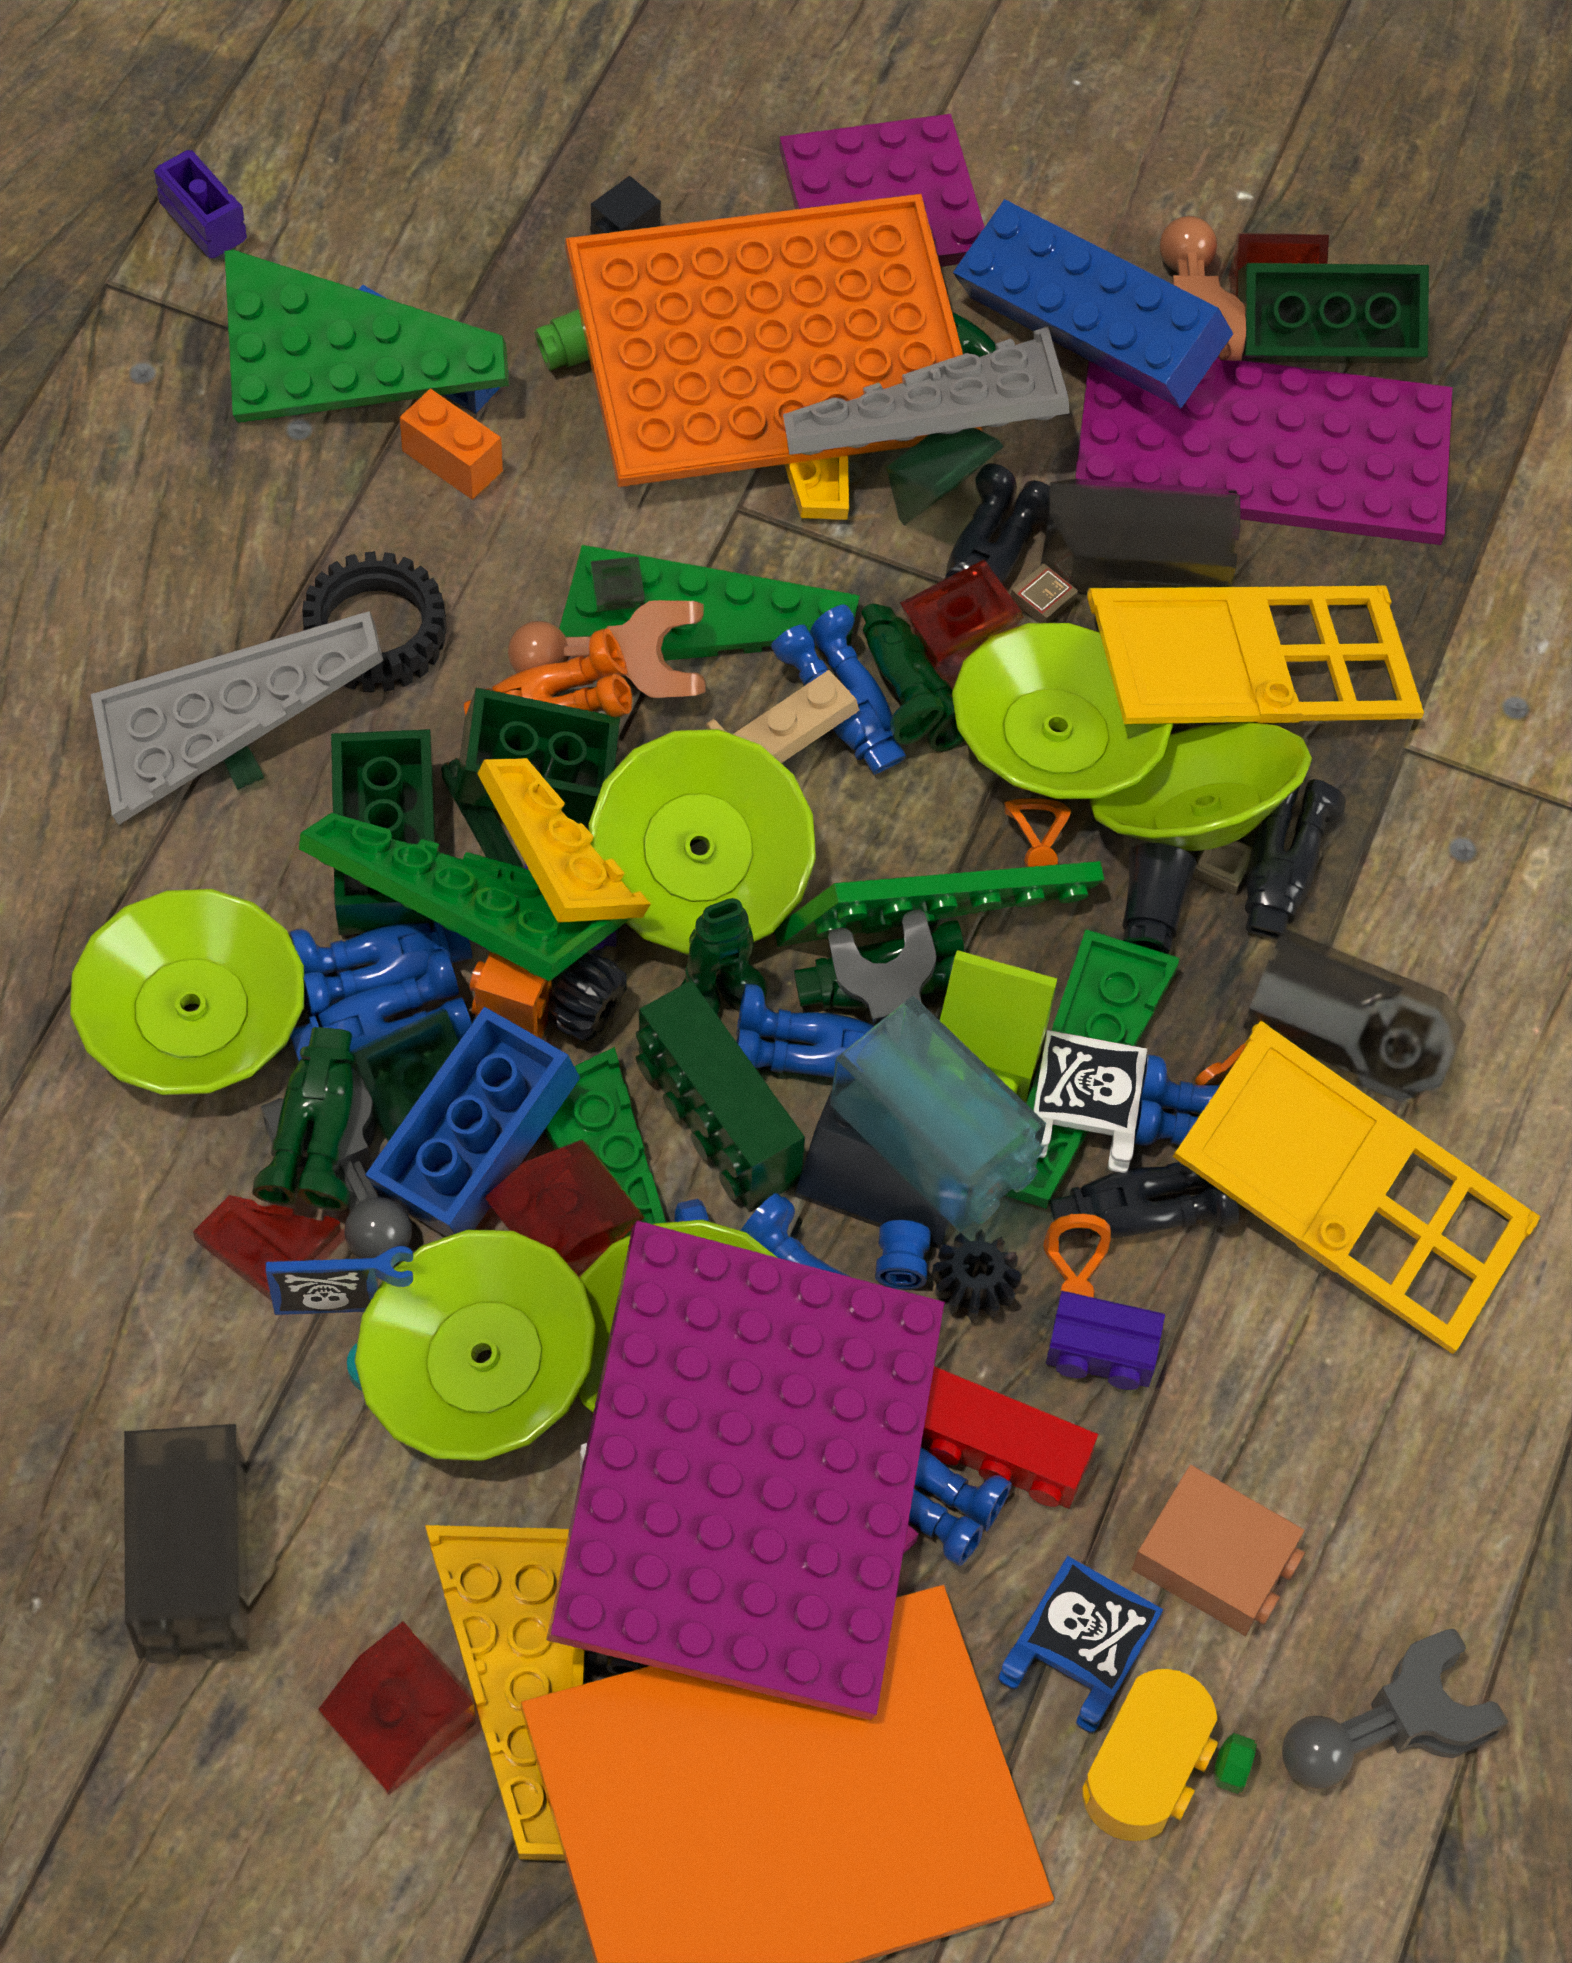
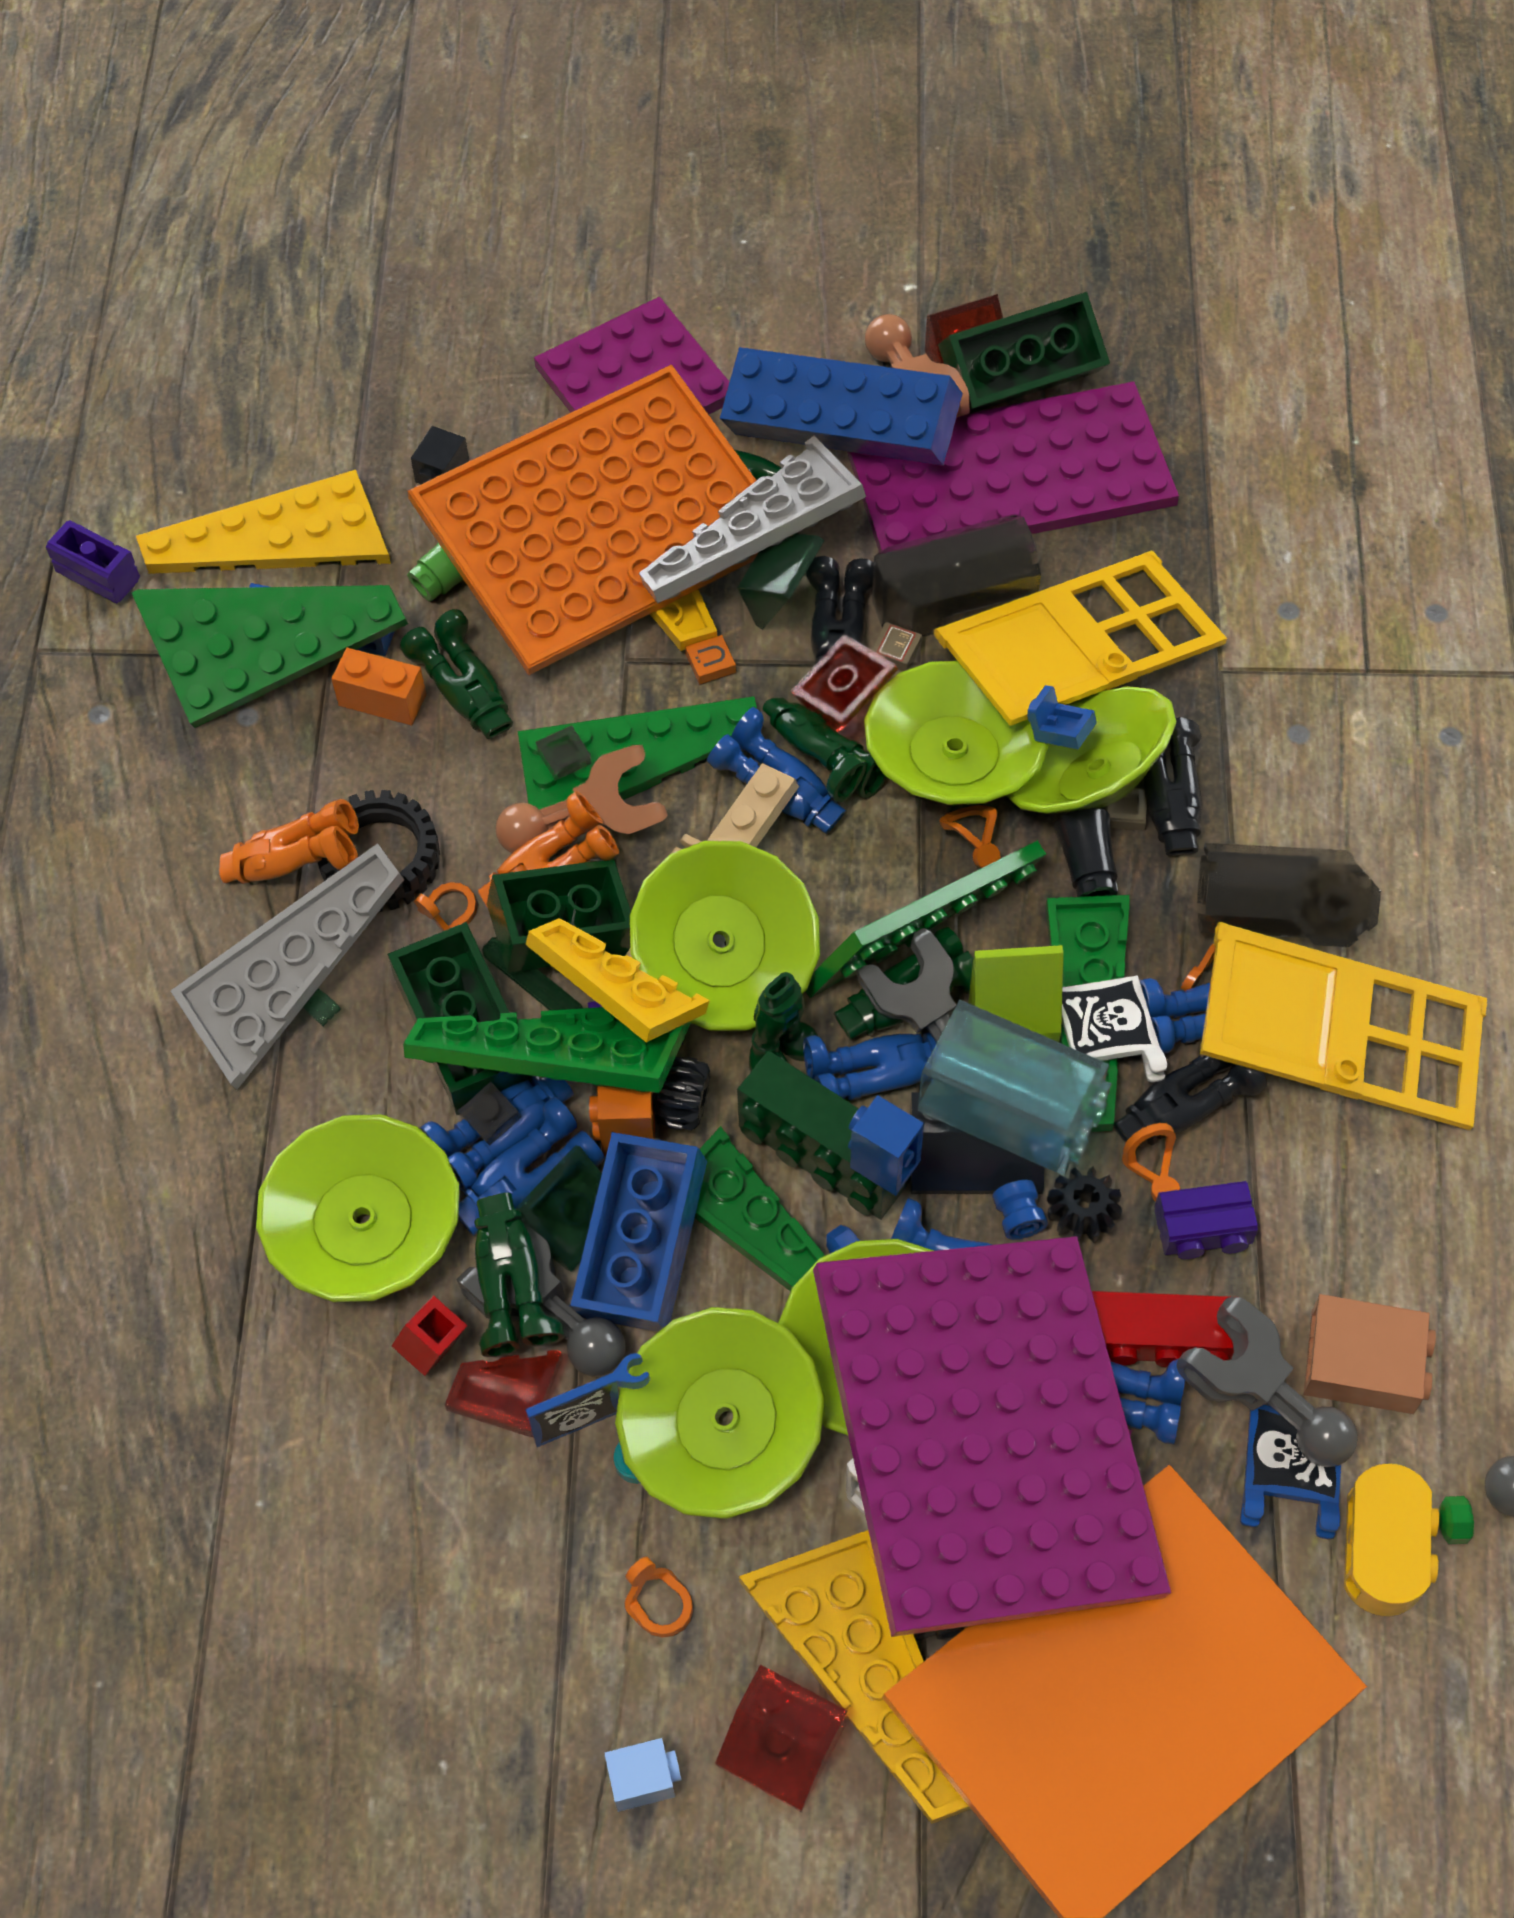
camera: 15 degrees left, 0 degrees up
(186, 1543) = (554, 1668): clear smoke brick -> none
(206, 1153) = (429, 1335): none -> red brick
(234, 1688) = (642, 1774): none -> light blue brick
(286, 583) = (293, 845): none -> orange piece
(316, 1482) = (646, 1570): none -> orange piece
(370, 943) = (490, 1113): none -> clear smoke plate
(400, 703) = (427, 907): none -> orange piece
(424, 239) = (281, 530): none -> yellow wing
(550, 488) = (475, 693): none -> dark green piece
(566, 1204) = (740, 1268): clear red slope -> none
(765, 1122) = (885, 1144): none -> blue brick
(830, 538) = (710, 659): none -> orange tile
(1075, 1521) = (1257, 1378): none -> dark grey piece
(1178, 738) = (1058, 722): none -> blue bracket

